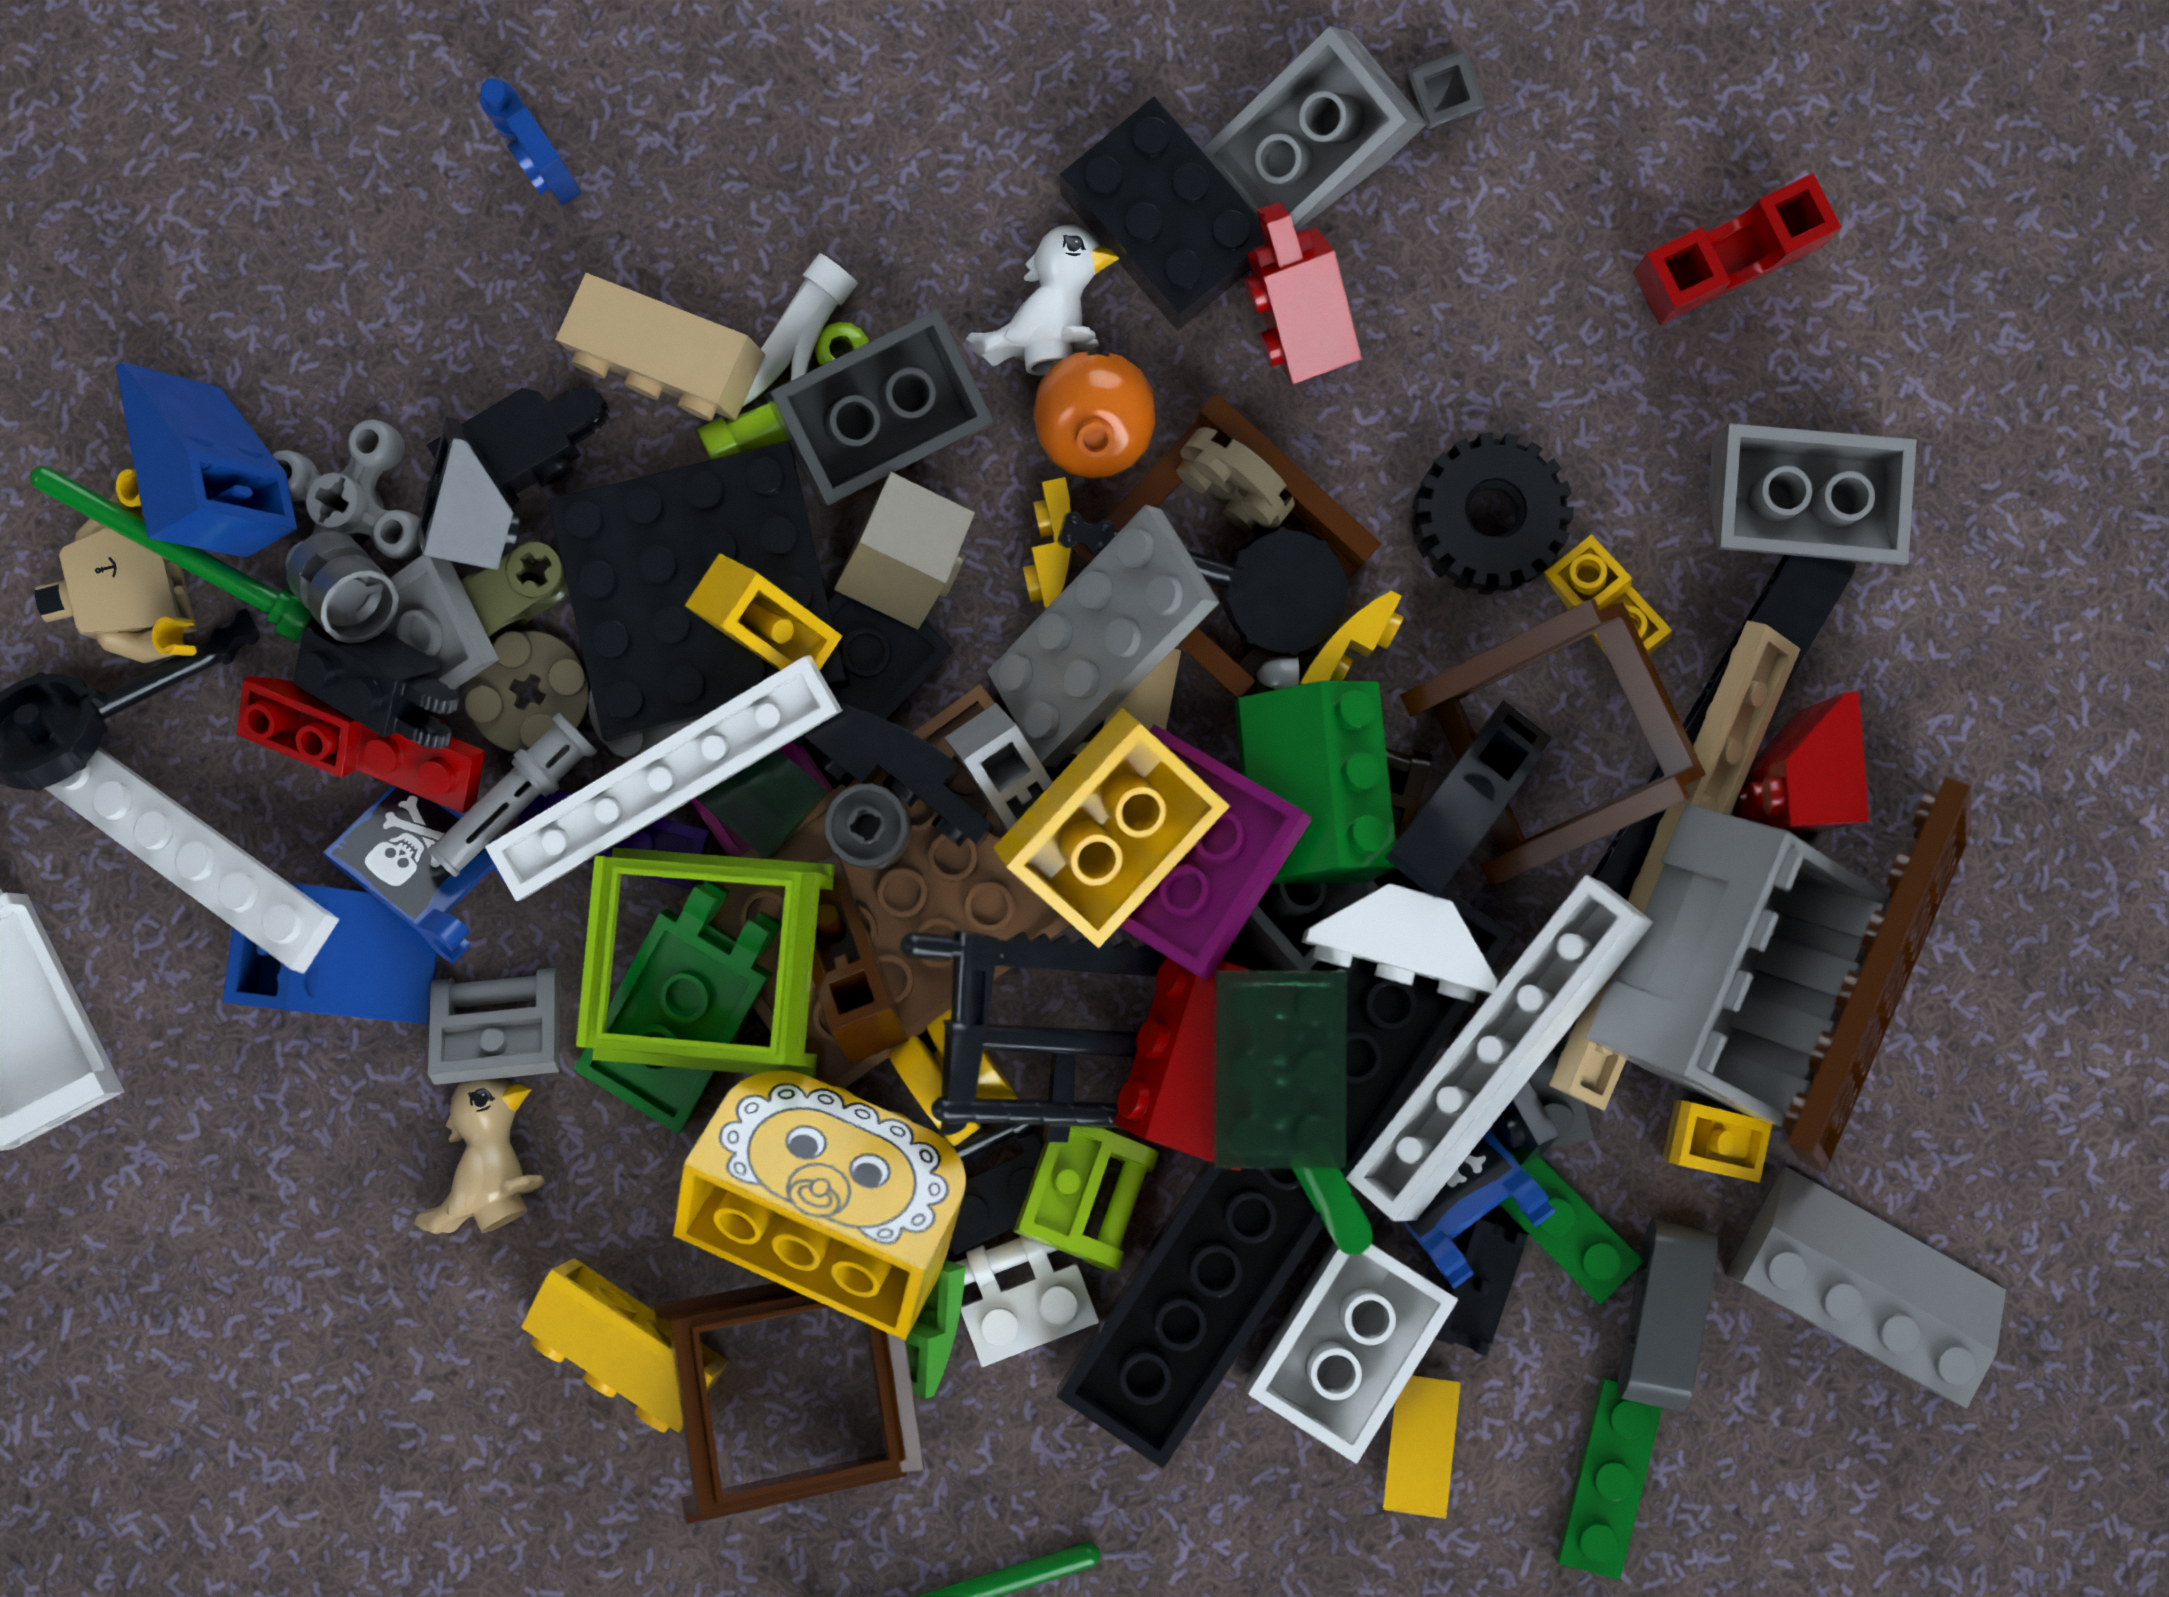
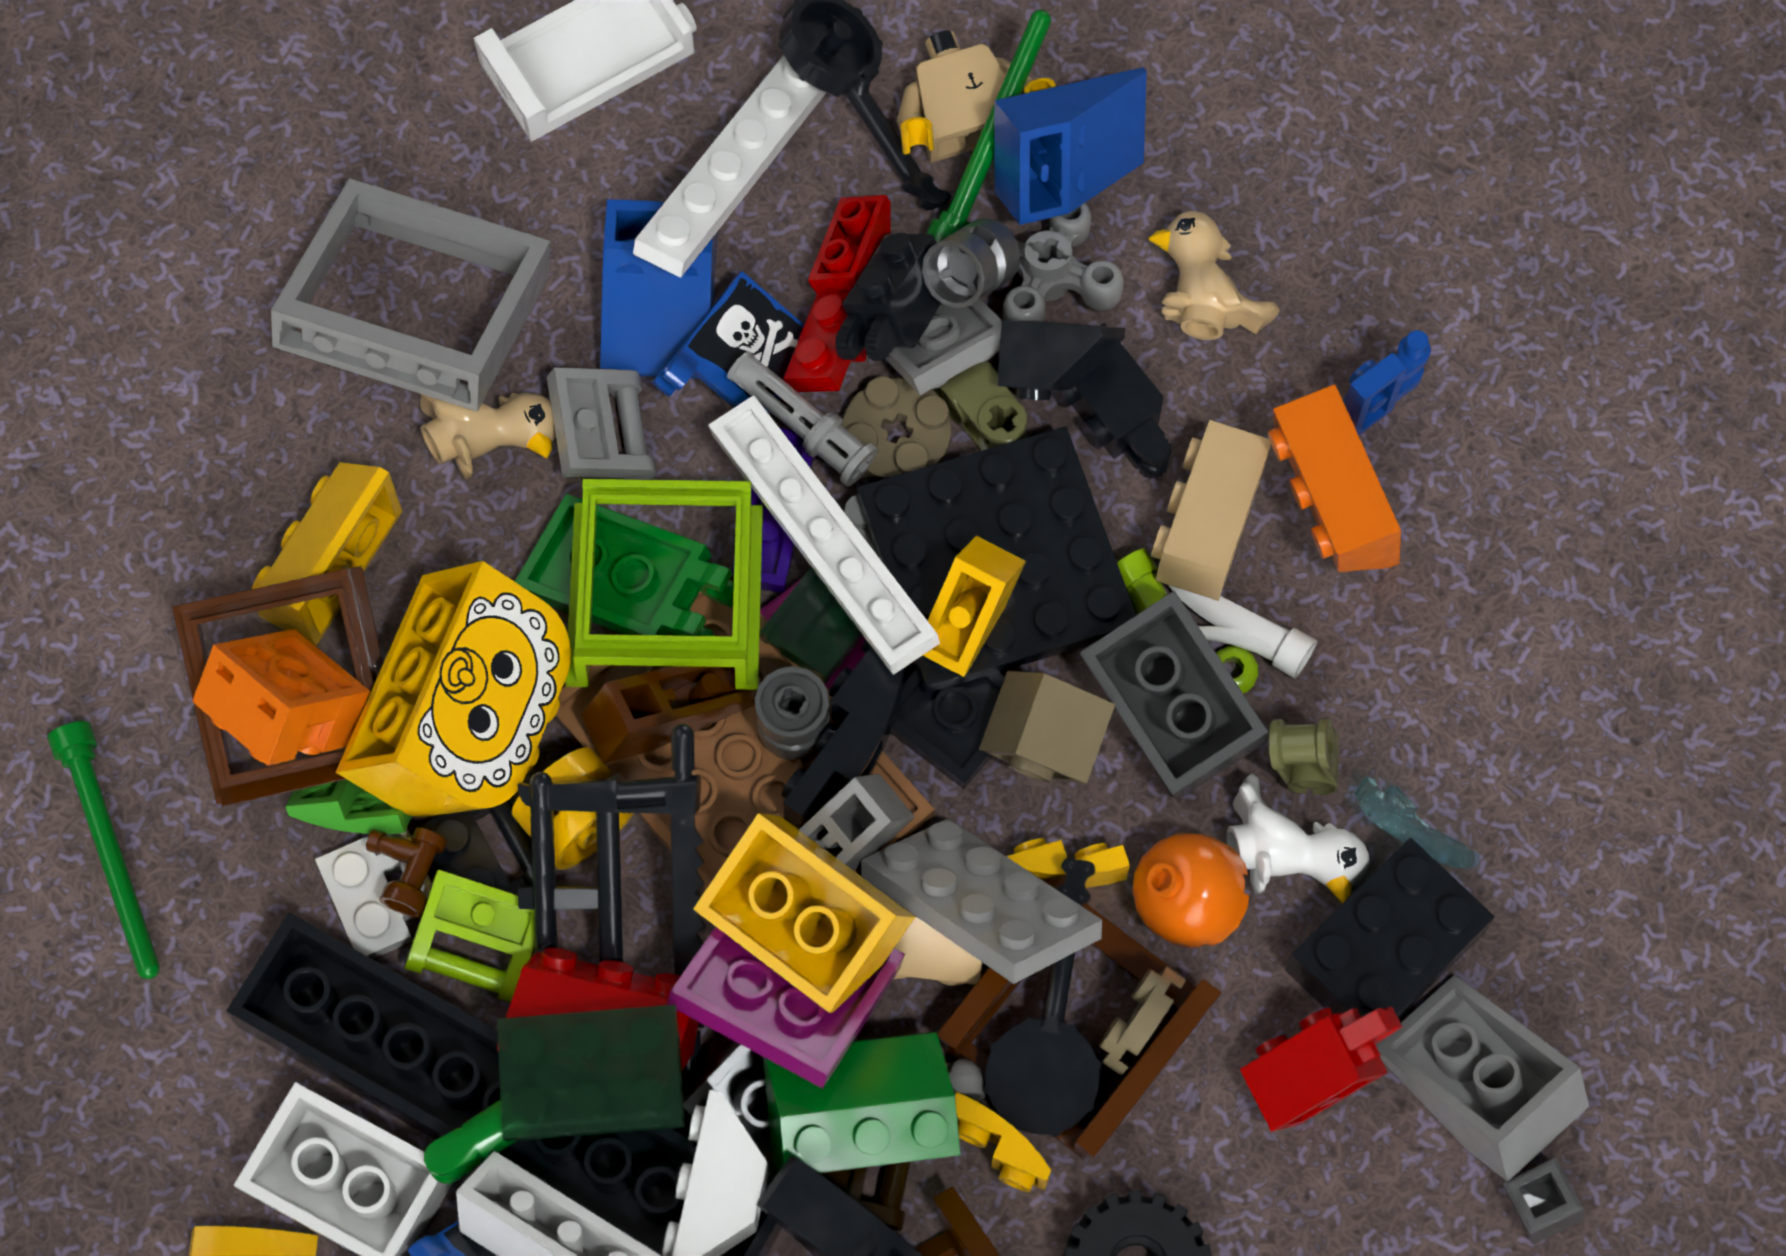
camera: 85 degrees right, 15 degrees down
(393, 331) = (1205, 294): none -> tan animal
(393, 1276) = (391, 354): none -> light grey window
(644, 205) = (1336, 482): none -> orange slope
(812, 1401) = (280, 696): none -> orange piece
(953, 276) = (1305, 755): none -> olive piece
(993, 1251) = (418, 853): none -> reddish brown piece
(1023, 193) = (1397, 816): none -> clear light blue piece

